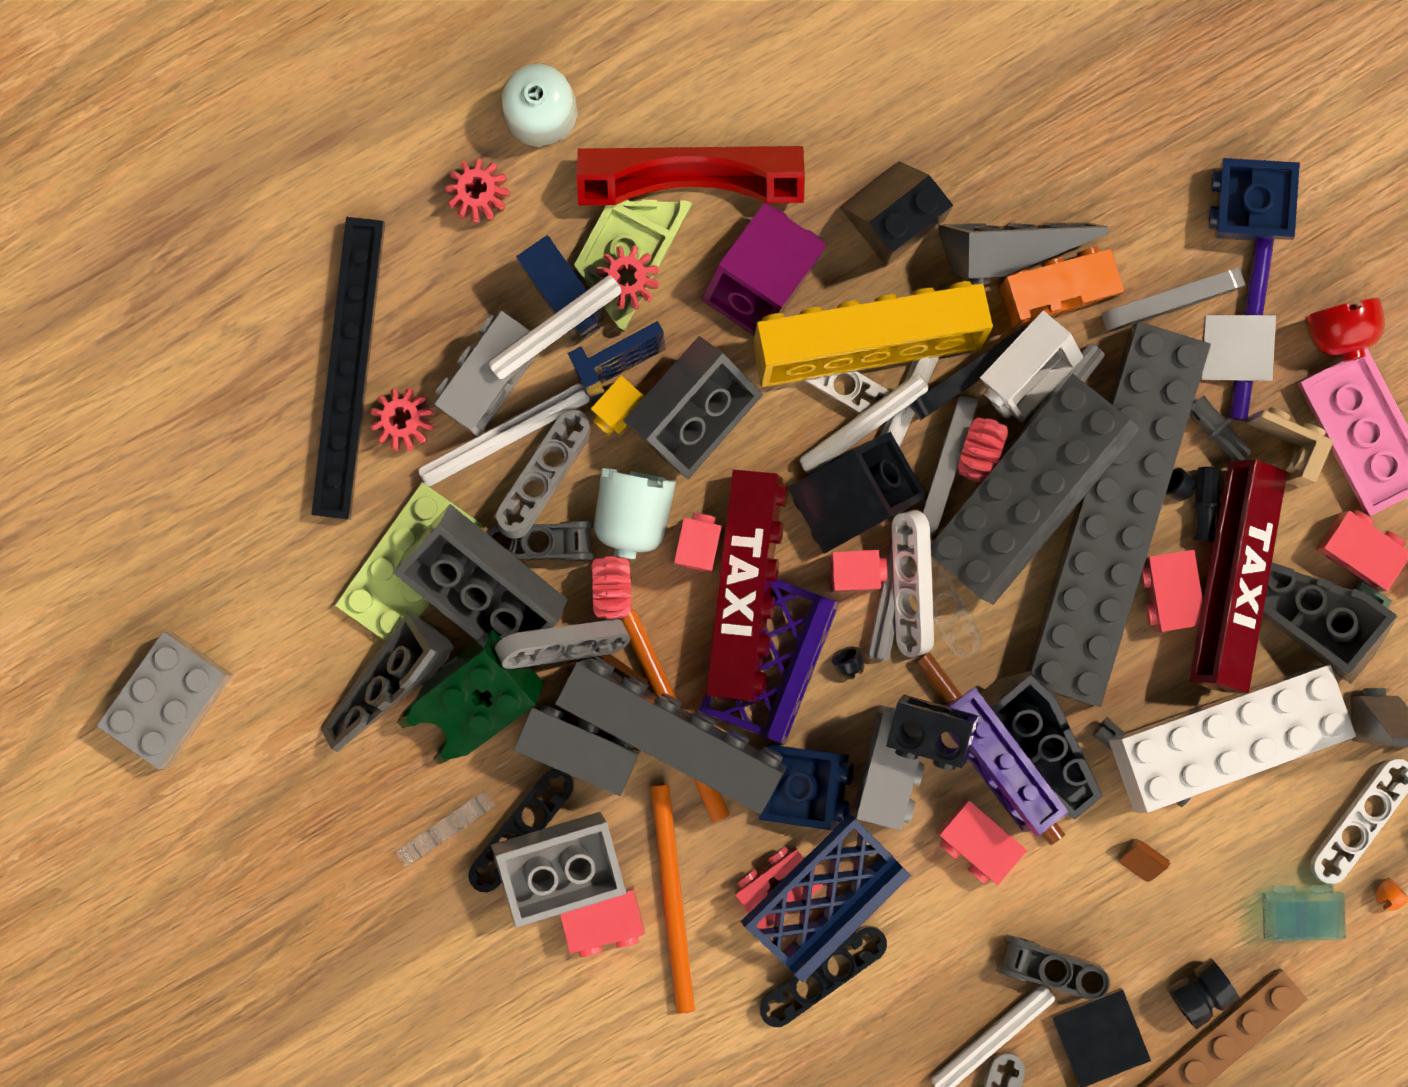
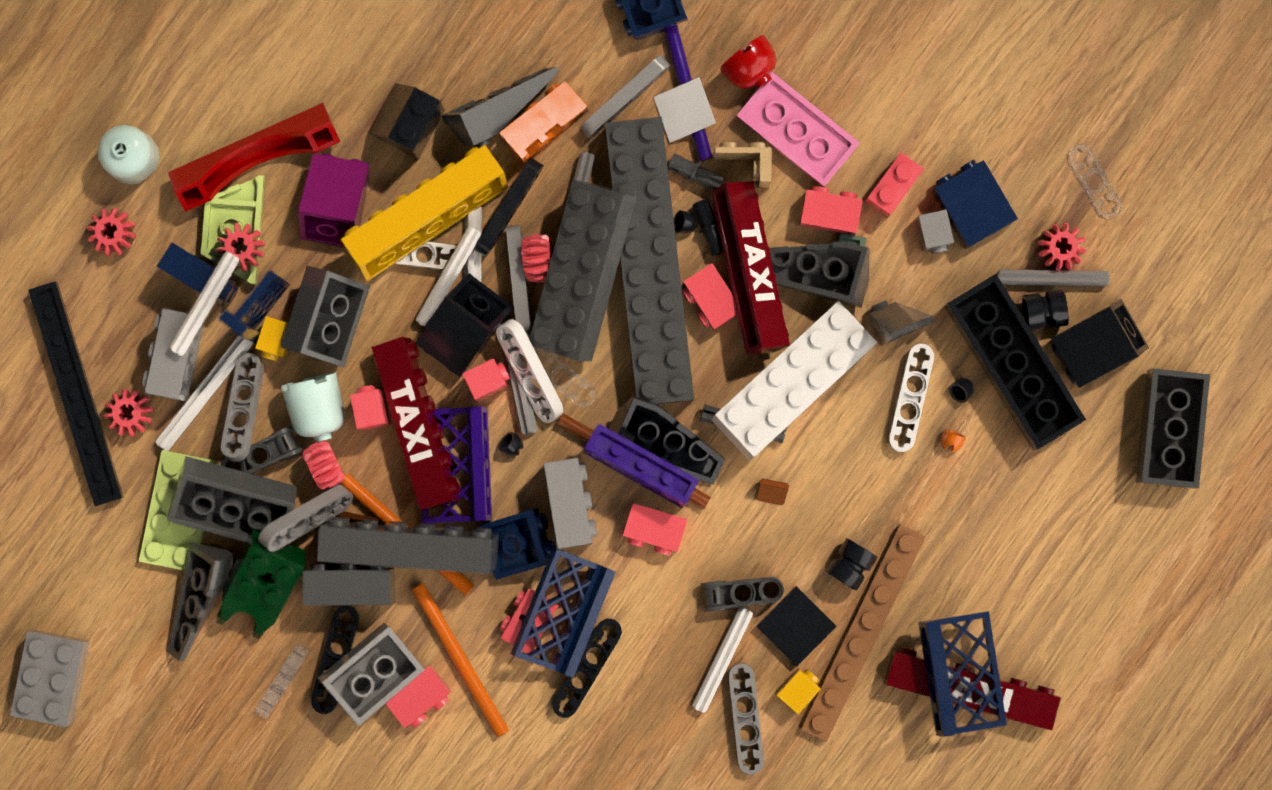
camera: 25 degrees left, 0 degrees up
(933, 721) = (578, 459): black brick -> none
(1031, 368) = (545, 188): white window -> none
(1304, 914) = (897, 479): clear light blue brick -> none

